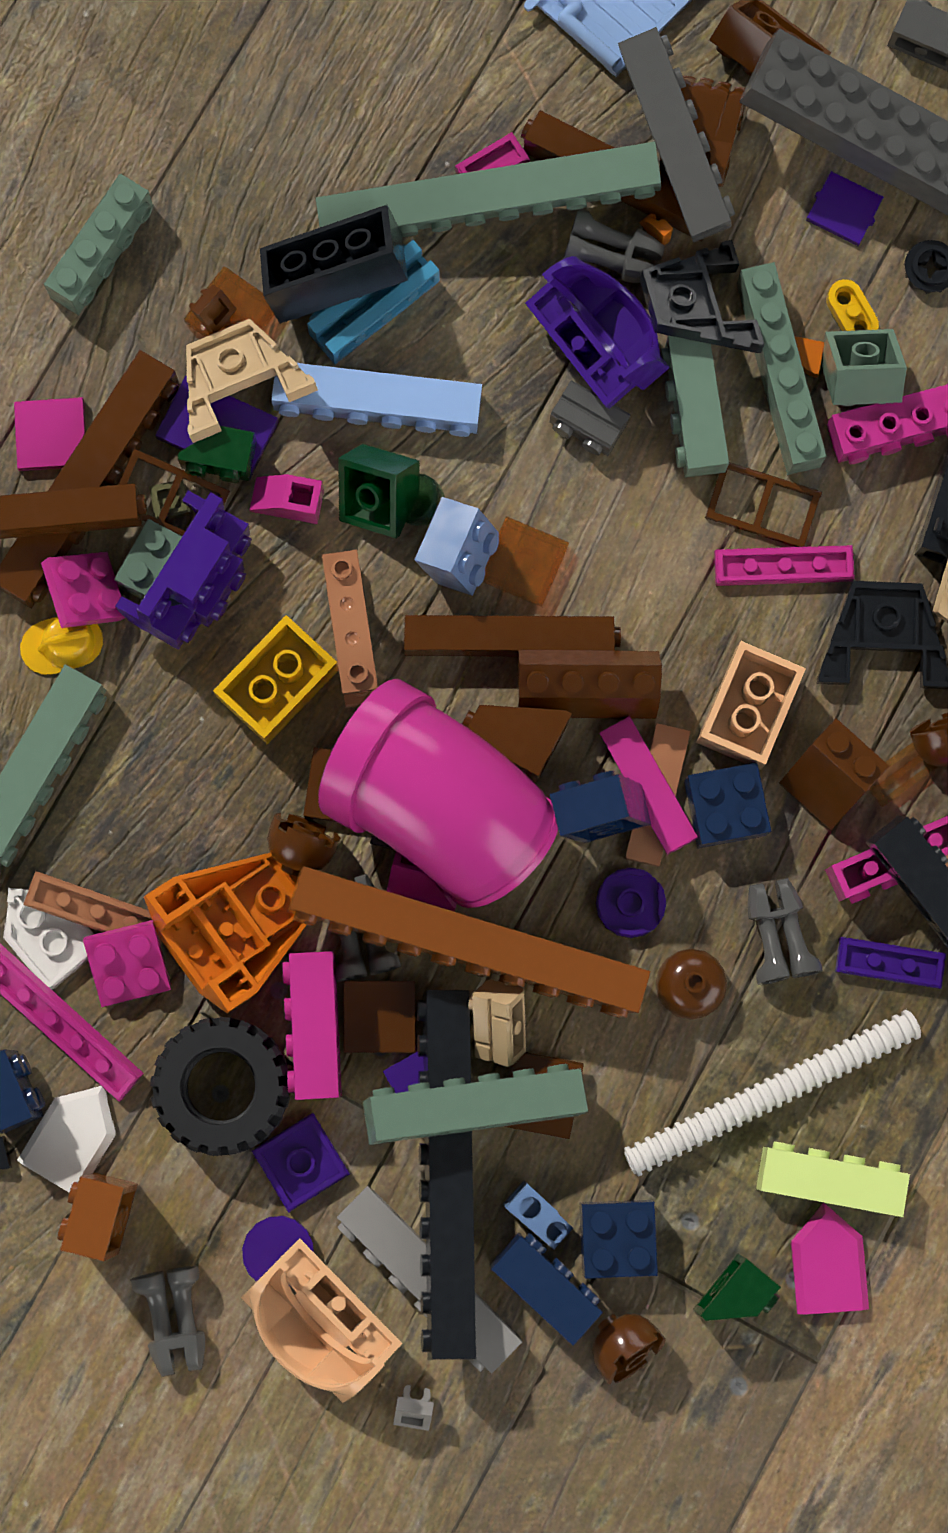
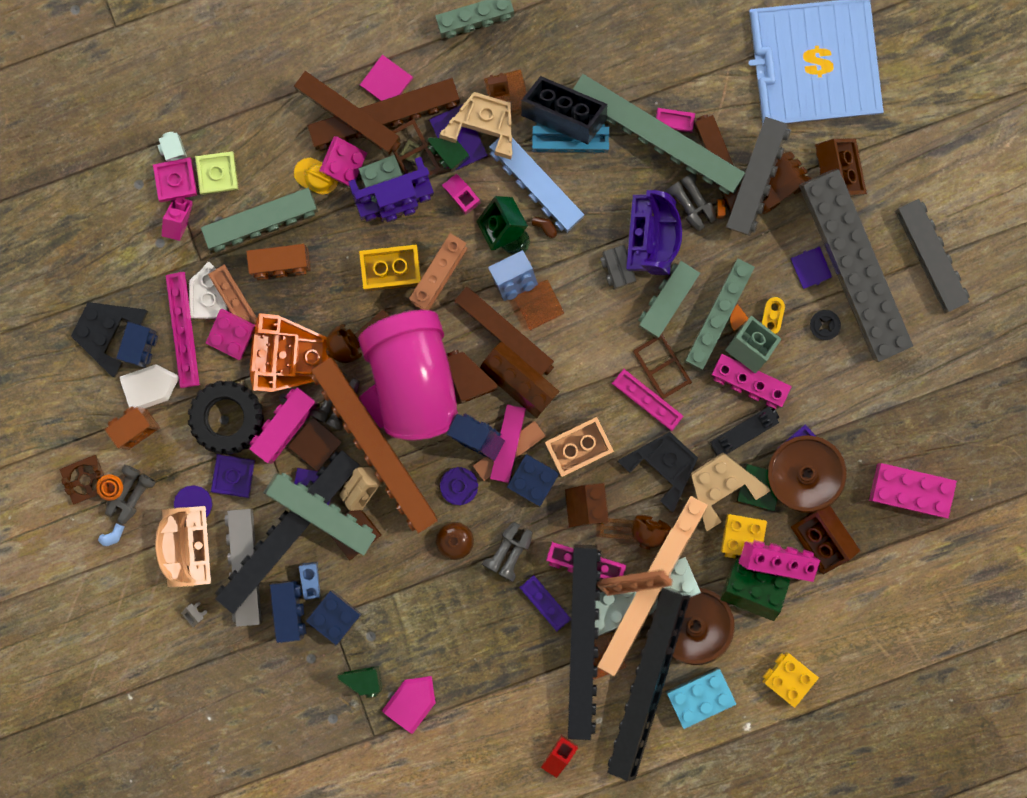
camera: 50 degrees right, 5 degrees up
(56, 1366) = (68, 470): none -> reddish brown piece
(110, 802) = (278, 261): none -> dark orange brick
(143, 1339) = (108, 492): none -> orange cone
(202, 1401) = (112, 538): none -> light blue arm
(441, 444) = (546, 225): none -> reddish brown arm
(624, 1345) = (299, 661): reddish brown cylinder -> none
(685, 303) = (701, 251): black wing -> none
(773, 1092) = (448, 613): white piece -> none
(833, 1181) = (441, 670): yellowish green brick -> none

